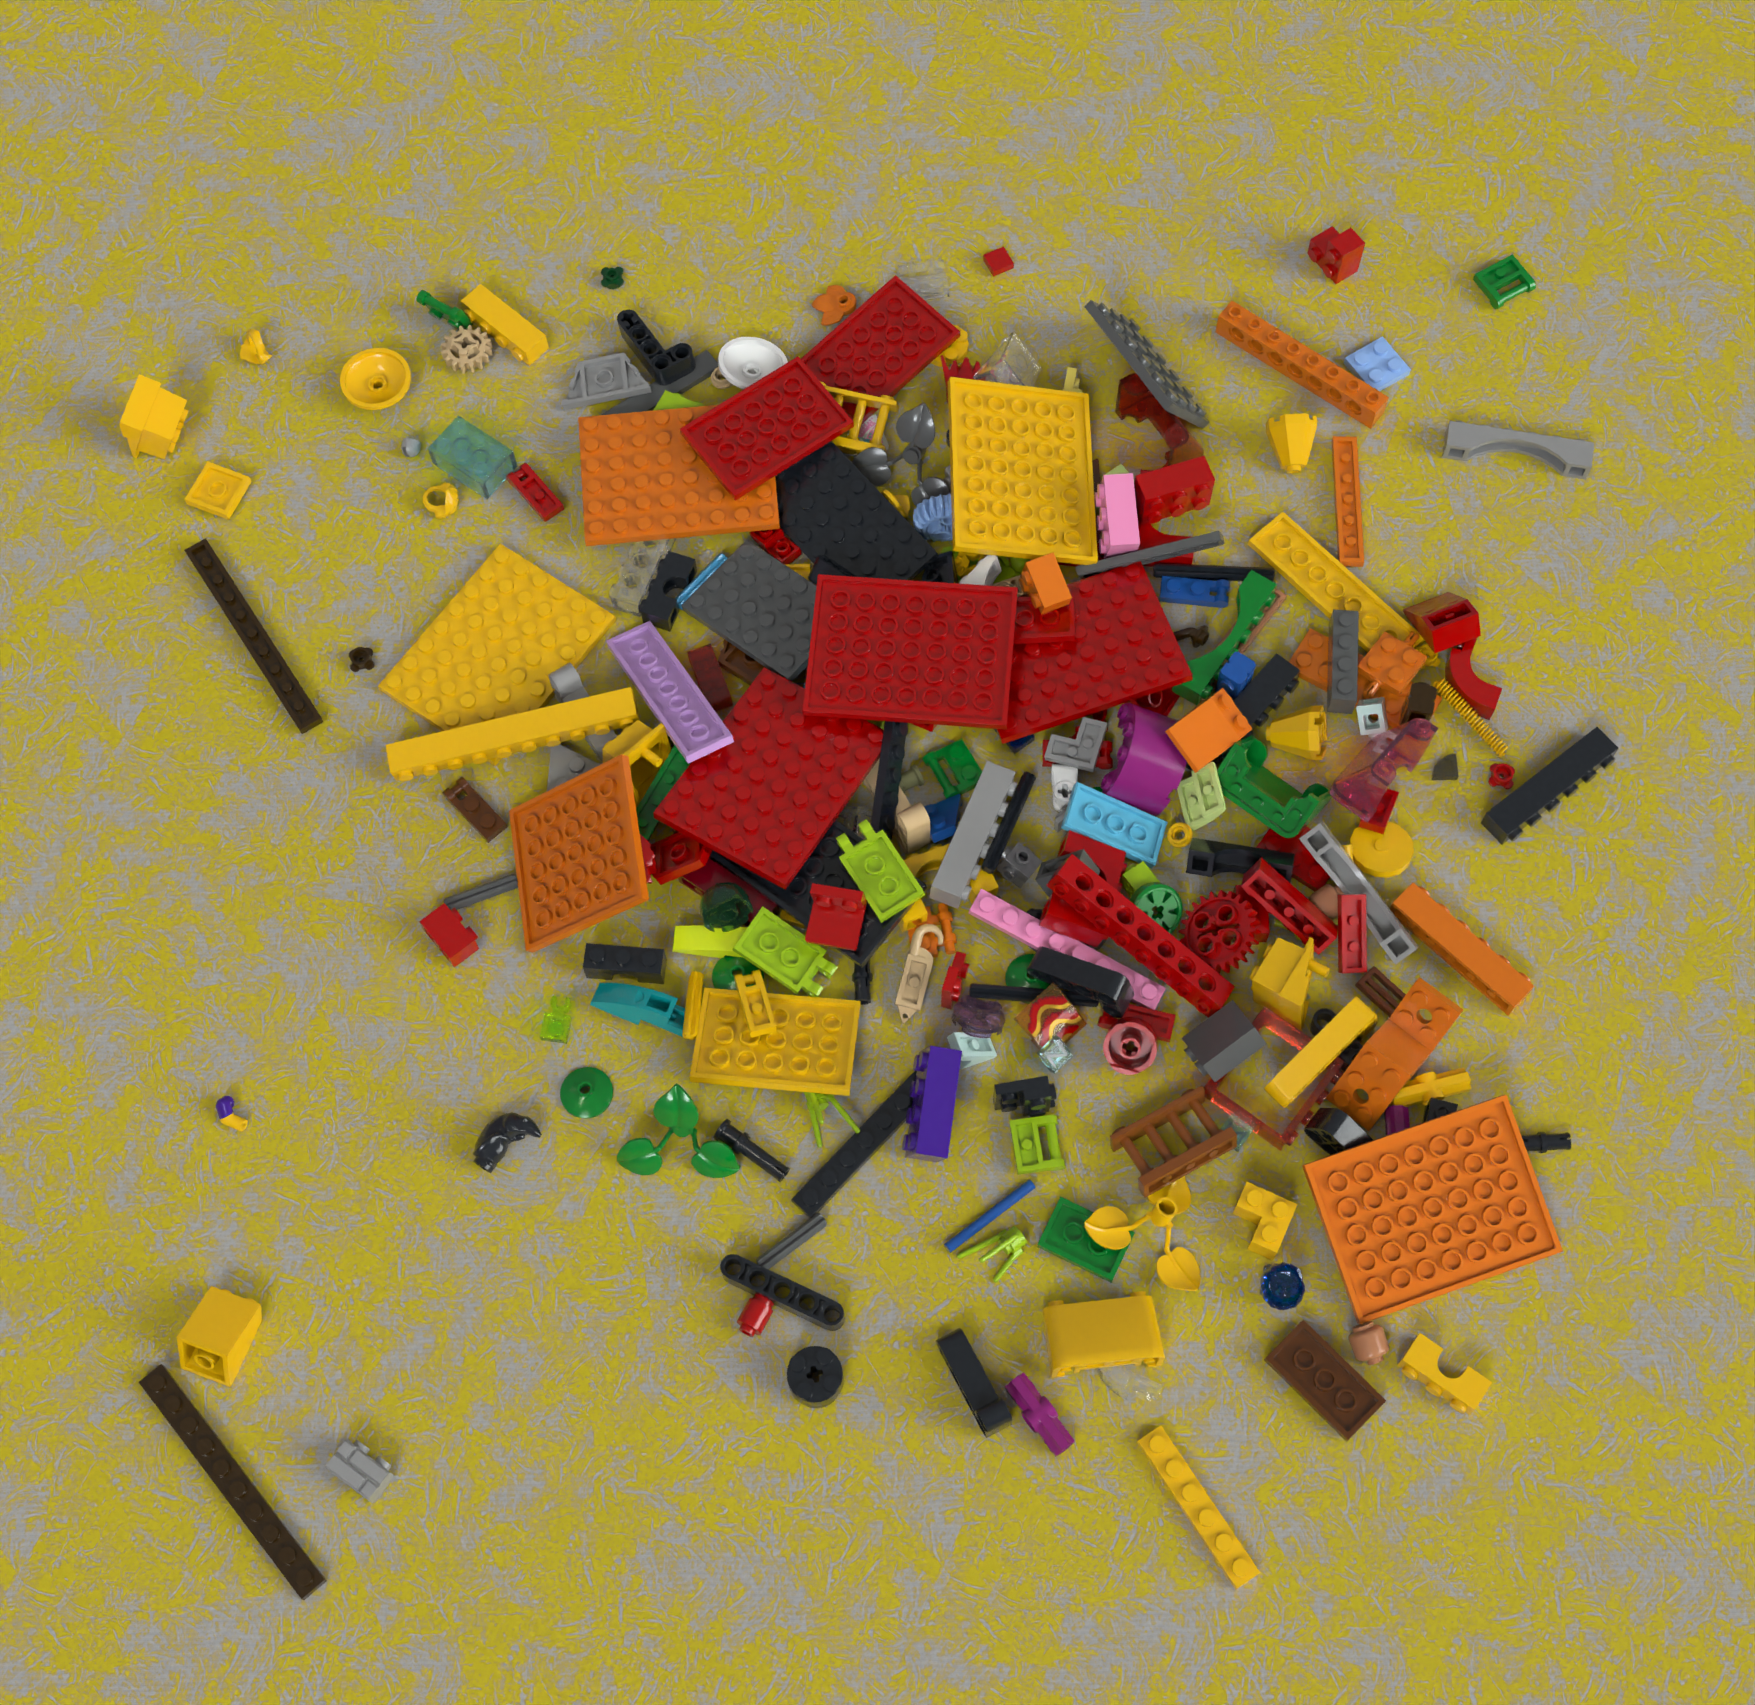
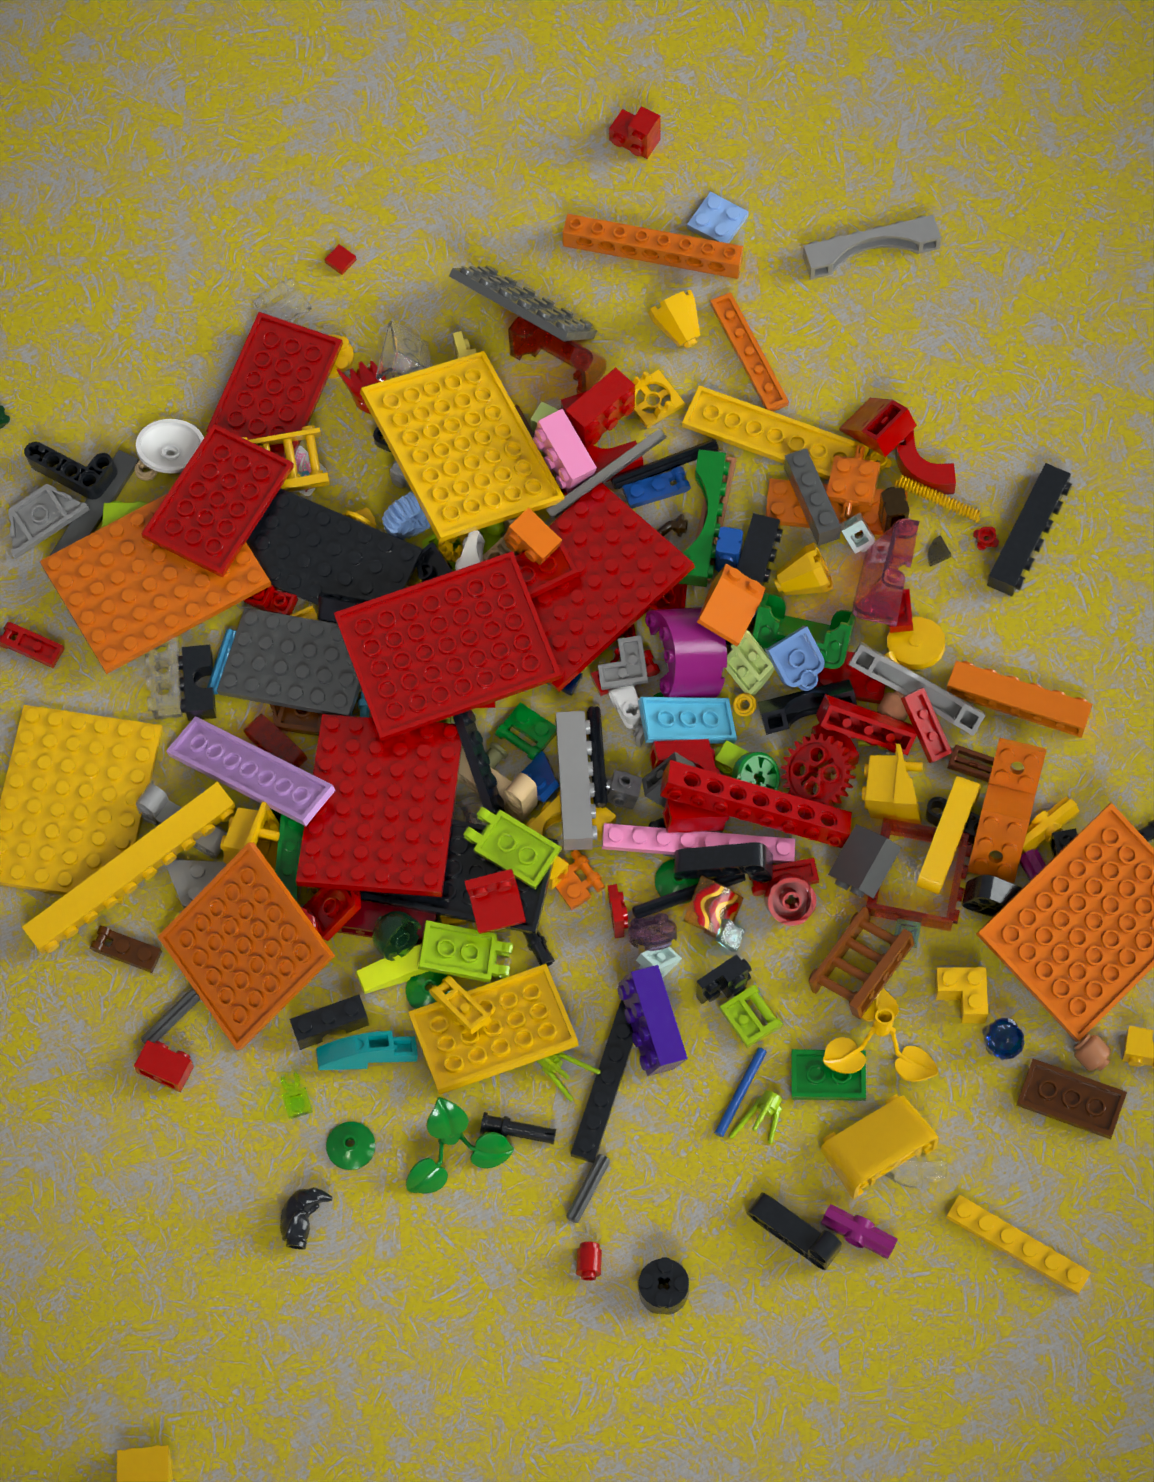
camera: 25 degrees left, 0 degrees up
(227, 1116) = (48, 1306): arm -> none
(693, 1005) = (406, 1031): yellow axle -> none
(792, 1301) = (613, 1225): black beam -> none
(835, 304) = (210, 361): orange plate -> none
(915, 973) = (581, 920): tan plate -> none
(918, 429) = (353, 448): dark grey plant -> none
(1233, 522) = (661, 412): none -> yellow piece
(1250, 811) = (797, 659): none -> medium blue plate
(1501, 275) = (785, 95): green plate -> none

